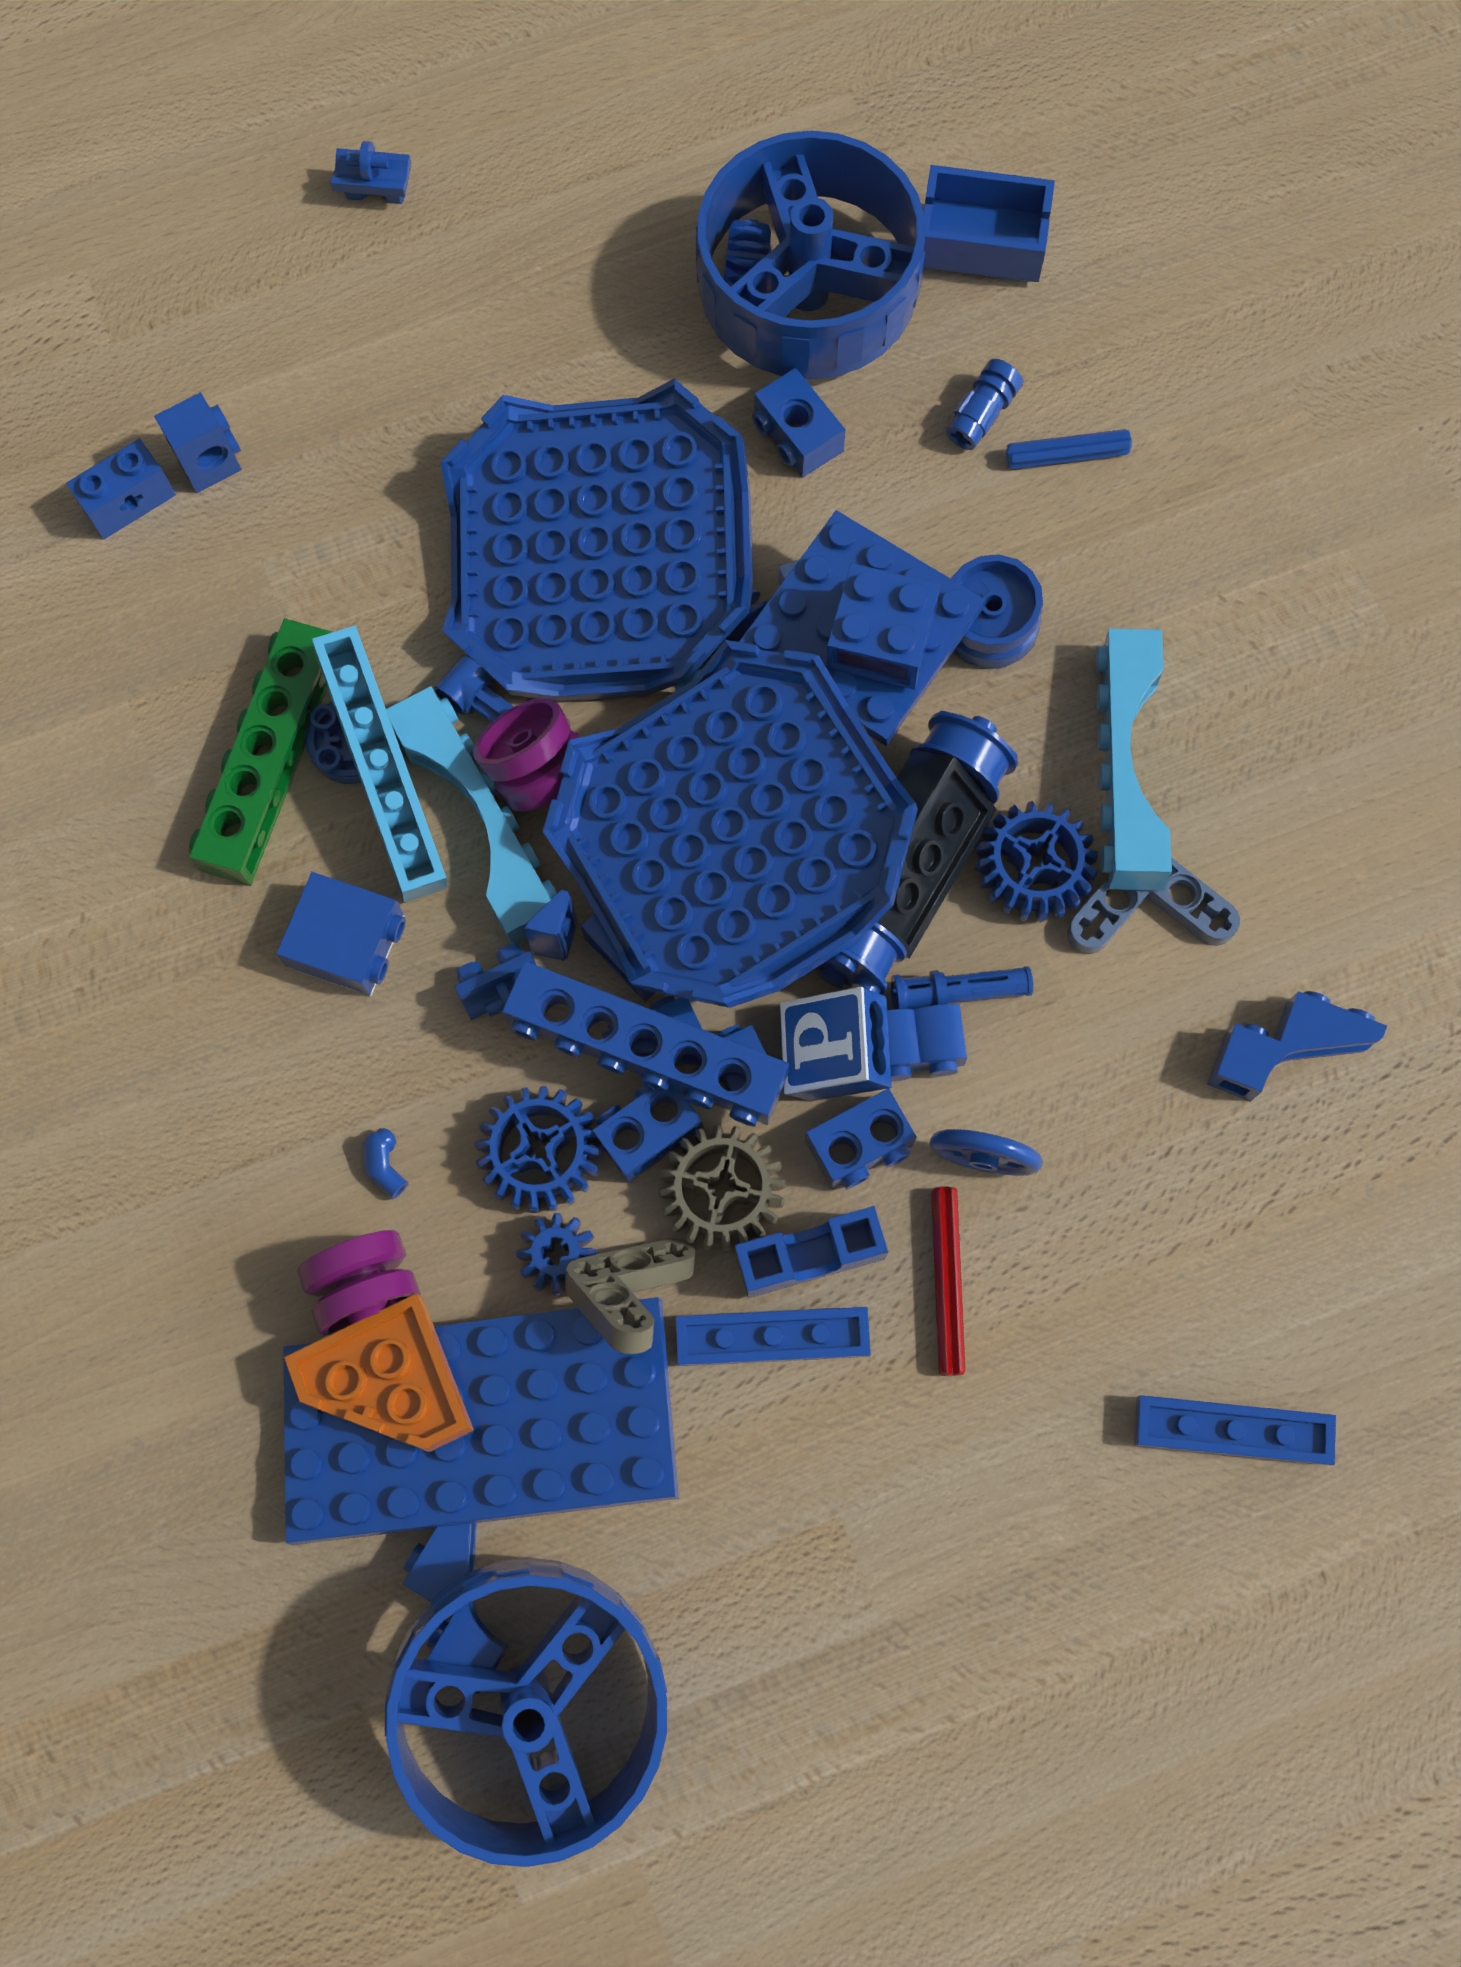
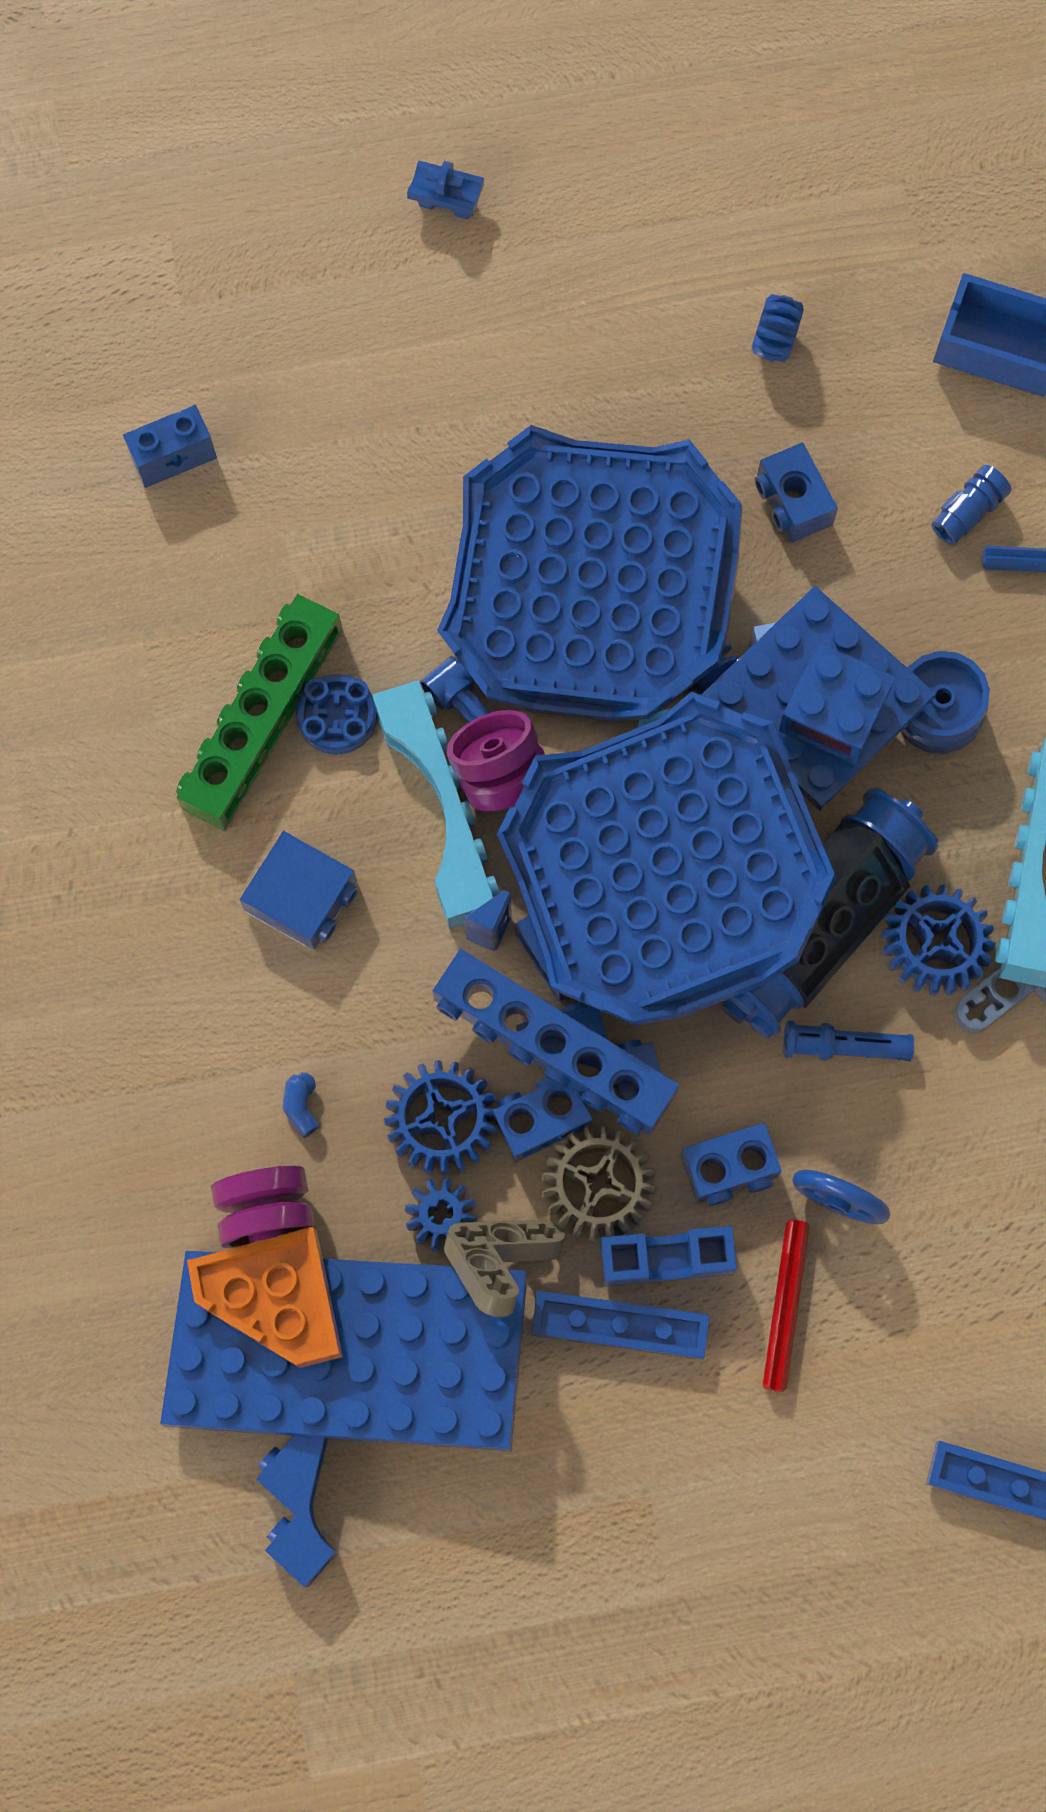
camera: 10 degrees right, 0 degrees up
(200, 441) = (249, 416): blue brick -> none
(380, 764) = (361, 744): medium azure brick -> none
(490, 990) = (426, 966): blue hips -> none
(528, 1718) = (346, 1613): blue wheel -> none
(789, 177) = (827, 263): blue wheel -> none
(836, 1044) = (724, 1074): piece -> none
(926, 1040) = (798, 1084): blue brick -> none

